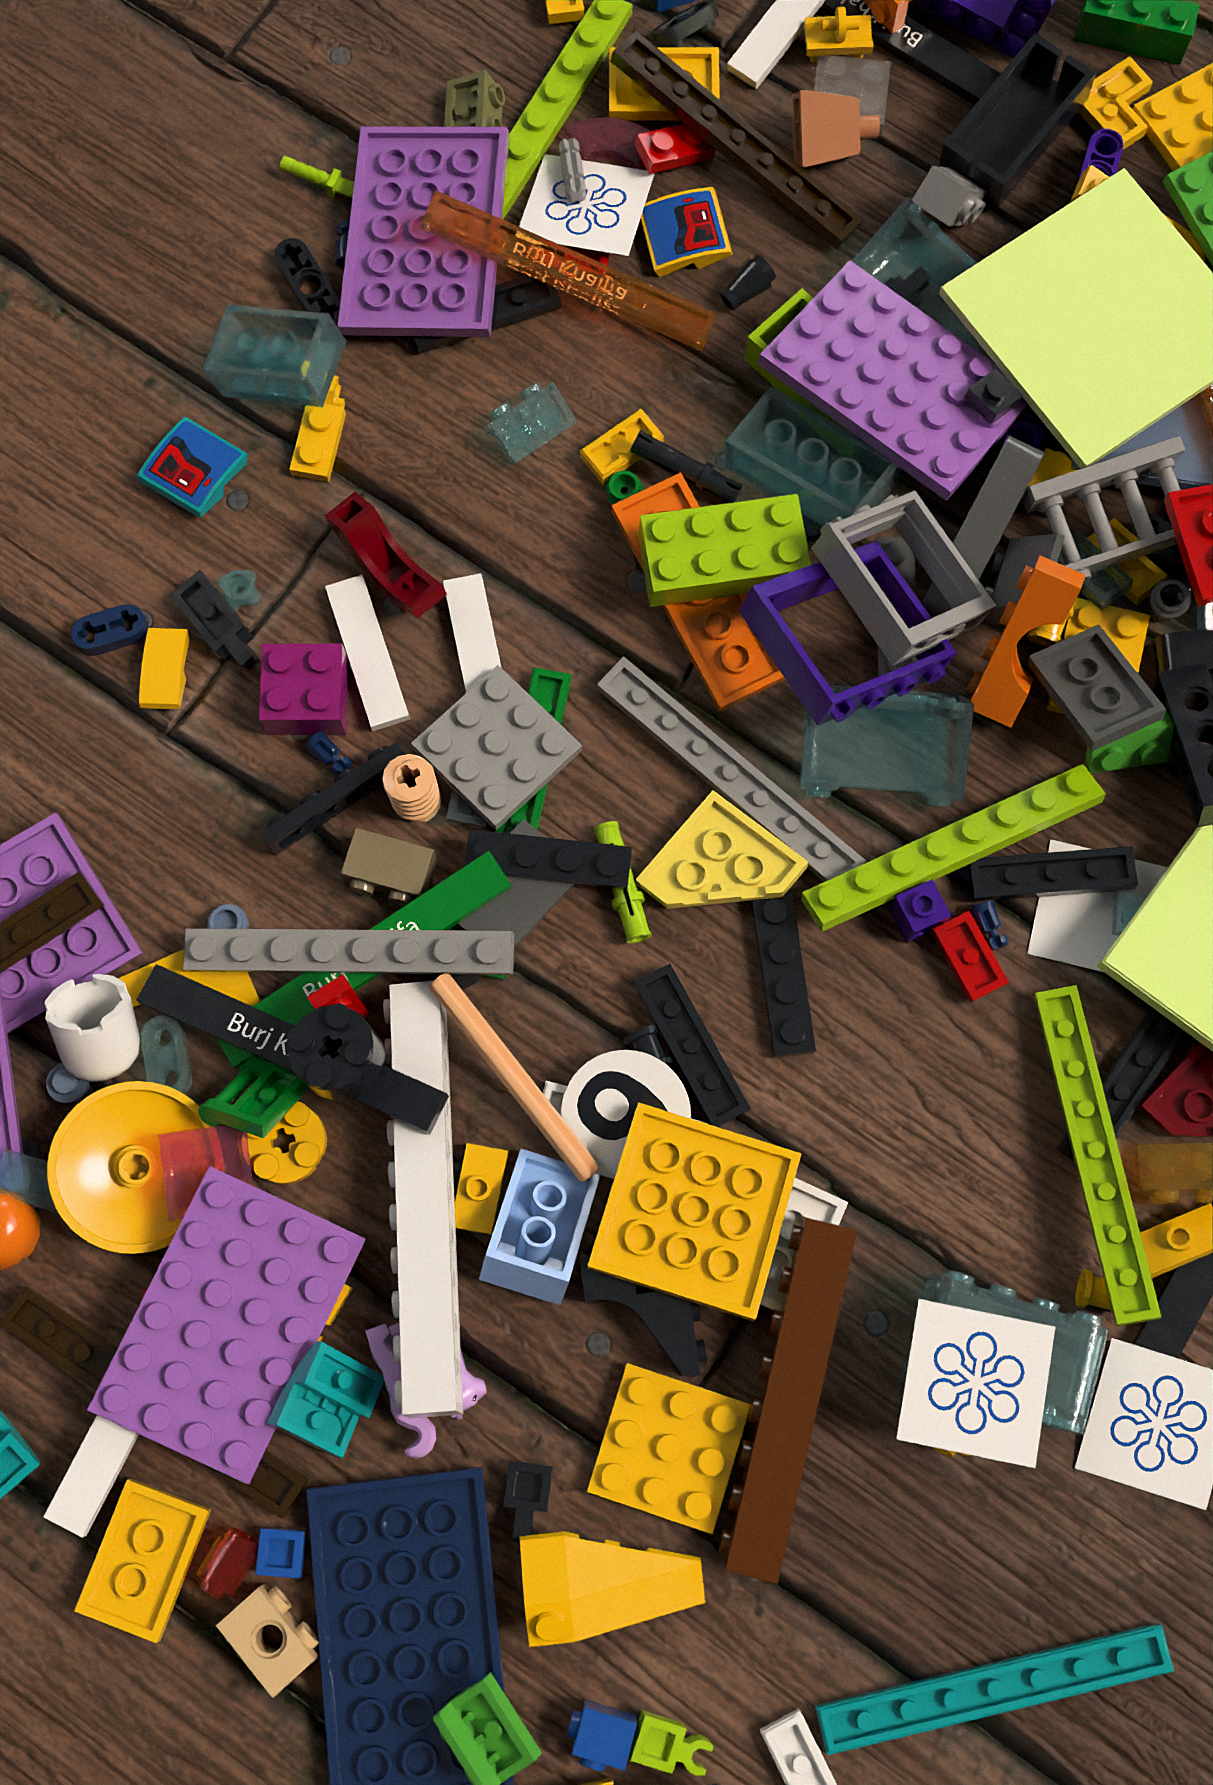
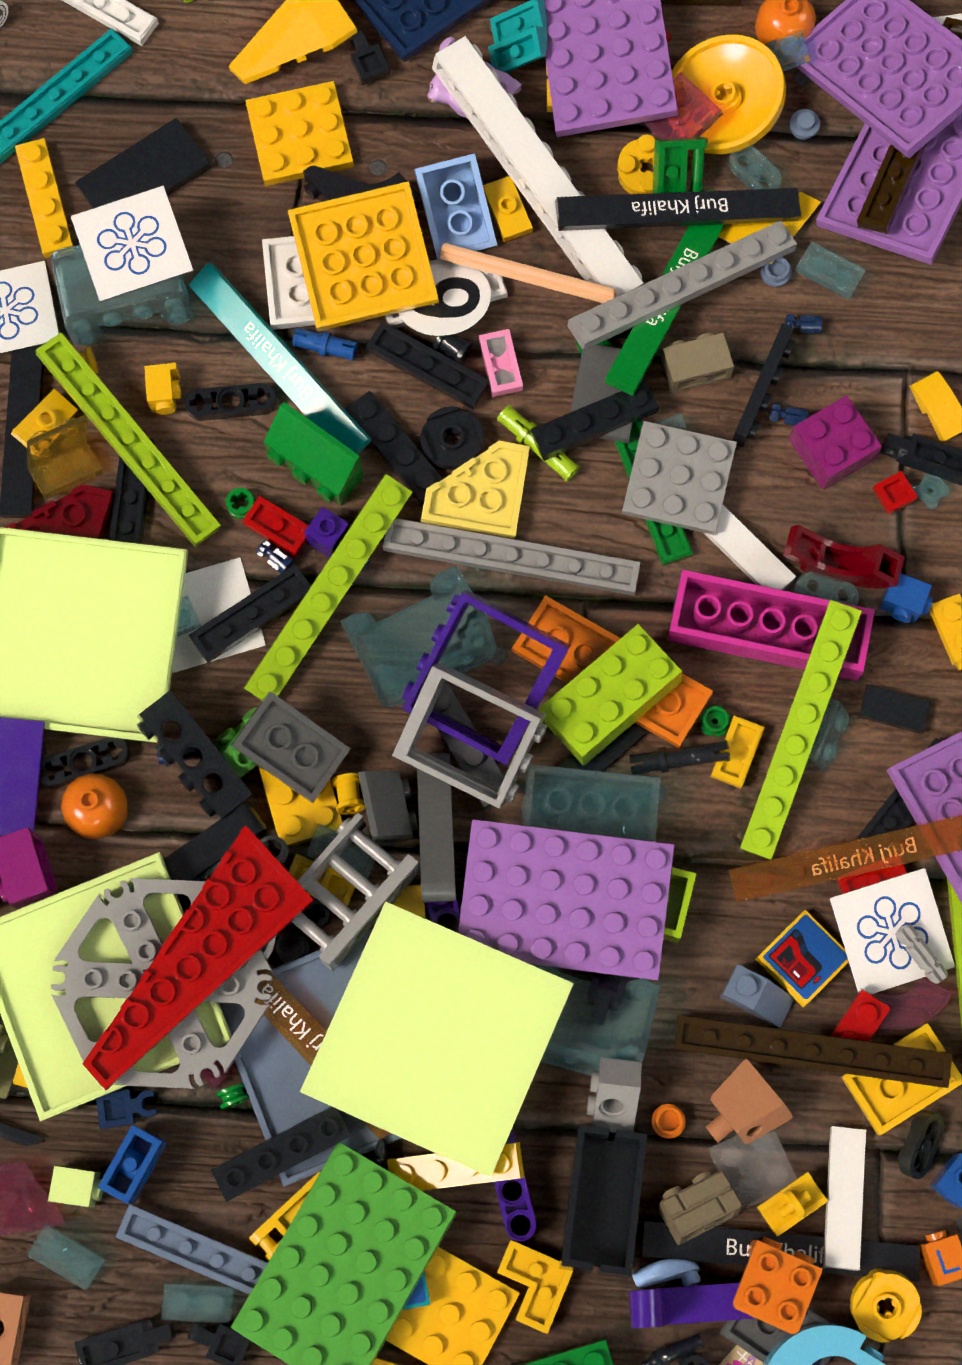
camera: 150 degrees right, 0 degrees up
(93, 1027) = (809, 149): white cylinder -> none
(168, 886) = (830, 270): none -> clear light blue plate
(239, 845) = (806, 324): none -> dark blue piece
(279, 605) = (895, 492): none -> red plate
(319, 1037) = (643, 205): black brick -> none
(338, 992) = (664, 250): red plate -> none
(341, 481) = (907, 599): none -> blue brick
(367, 653) = (813, 499): white tile -> none
(412, 788) = (715, 410): light nougat piece -> none
(424, 546) = (827, 588): none -> clear light blue plate
(436, 402) = (894, 709): none -> black tile
(508, 538) = (758, 622): none -> dark pink brick
(545, 416) = (801, 729): none -> lime plate
(606, 999) = (500, 363): none -> bright pink piece
(734, 931) = (435, 431): none -> black plate
(749, 281) = (728, 942): black cone -> none
(757, 223) = (756, 996): none -> sand blue slope
(787, 1137) = (324, 344): none -> blue pin
(788, 1400) = (243, 193): reddish brown brick -> none
(861, 1157) = (277, 358): none -> tile
(887, 1006) = (313, 455): none -> green slope
(894, 1510) = (160, 159): none -> black tile
(906, 167) = (668, 1121): none -> orange plate
(926, 76) = (699, 1206): none -> dark tan brick
(967, 1162) = (220, 393): none -> black beam
(984, 47) = (667, 1270): none -> light blue arm
(993, 396) = (484, 917): black plate -> none
(997, 999) = (238, 494): none -> green bush
(1018, 1199) = (162, 387): none -> yellow brick
(1034, 1556) = (44, 196): none -> yellow plate
(1045, 599) = (361, 761): orange arch -> none

